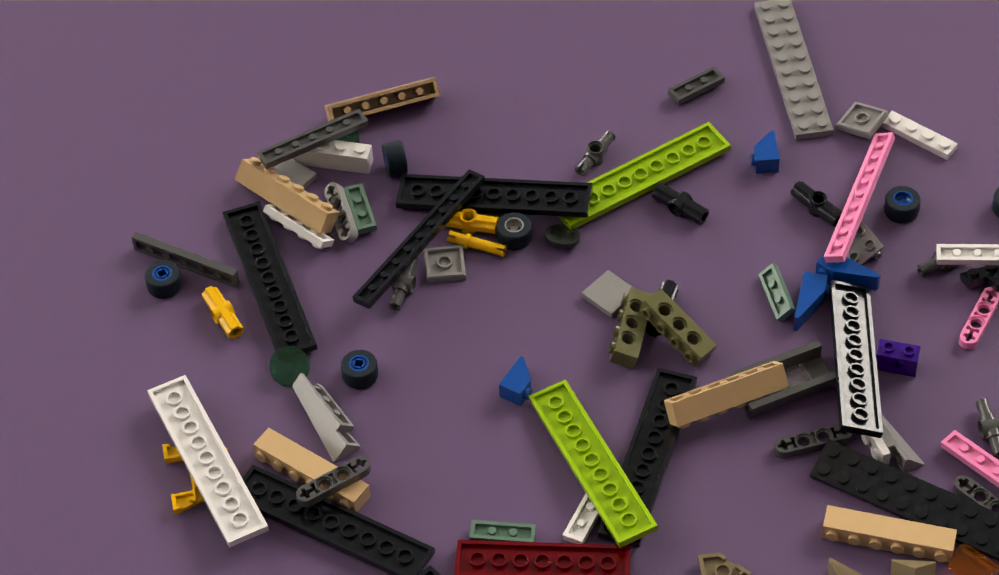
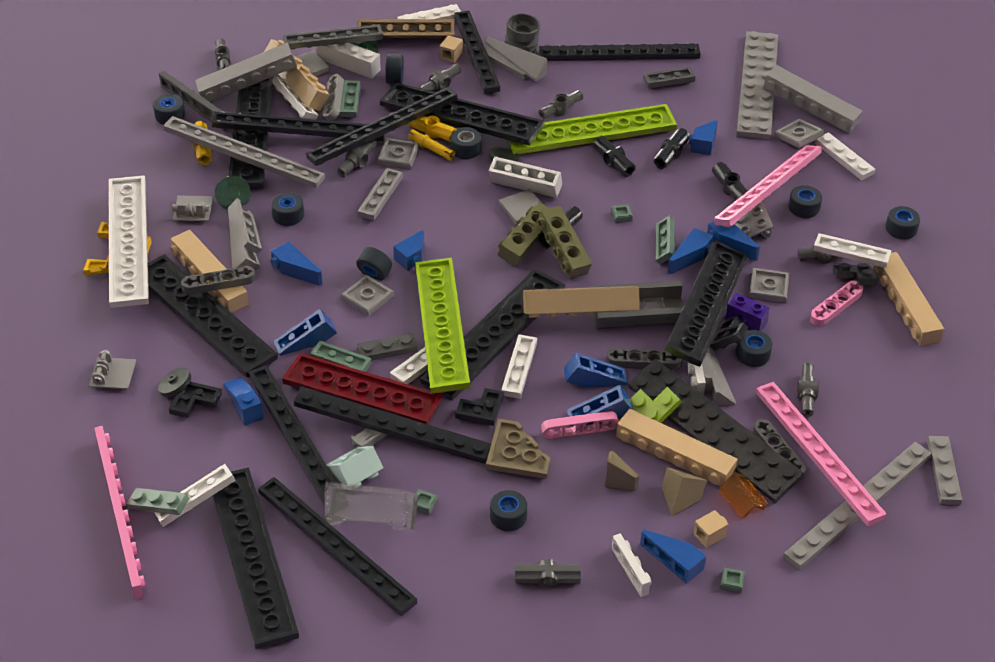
camera: 15 degrees right, 5 degrees down
(189, 192) = (222, 54): none -> dark grey pin
(234, 211) = (246, 73): none -> light grey brick
(252, 397) = (192, 208): none -> light grey hinge
(280, 313) = (244, 152): none -> light grey plate
(311, 264) = (284, 125): none -> black plate
(399, 74) = (436, 13): none -> white plate
(401, 435) = (295, 264): none -> blue slope
(443, 113) = (451, 49): none -> tan brick
(449, 156) = (441, 79): none -> dark grey pin
(450, 321) = (380, 194): none -> light grey plate
(453, 516) = (306, 333): none -> blue slope
(472, 108) = (477, 52): none -> black plate
(486, 410) = (374, 263): none -> black wheel
(493, 449) = (367, 295): none -> light grey tile
(516, 74) = (523, 32): none -> dark grey wheel
(520, 109) = (515, 60): none -> light grey wedge
(544, 504) = (388, 346): none -> dark grey plate
(600, 257) = (525, 177): none -> white brick
(626, 66) = (620, 52): none -> black plate
(678, 550) = (483, 411): none -> black plate
(691, 487) = (519, 366): none -> white plate
(717, 271) = (621, 213): none -> sand green tile
(736, 177) = (671, 148): none -> black piece
(770, 472) = (593, 373): none -> blue slope
(782, 536) = (557, 427): none -> bright pink beam
(797, 511) = (611, 400): none -> blue slope
(851, 497) = (658, 408): none -> lime plate
(861, 74) = (812, 99): none -> light grey brick
(891, 387) = (729, 332): none -> black plate
(903, 315) = (769, 285): none -> light grey tile
(920, 396) = (754, 348): none -> black wheel

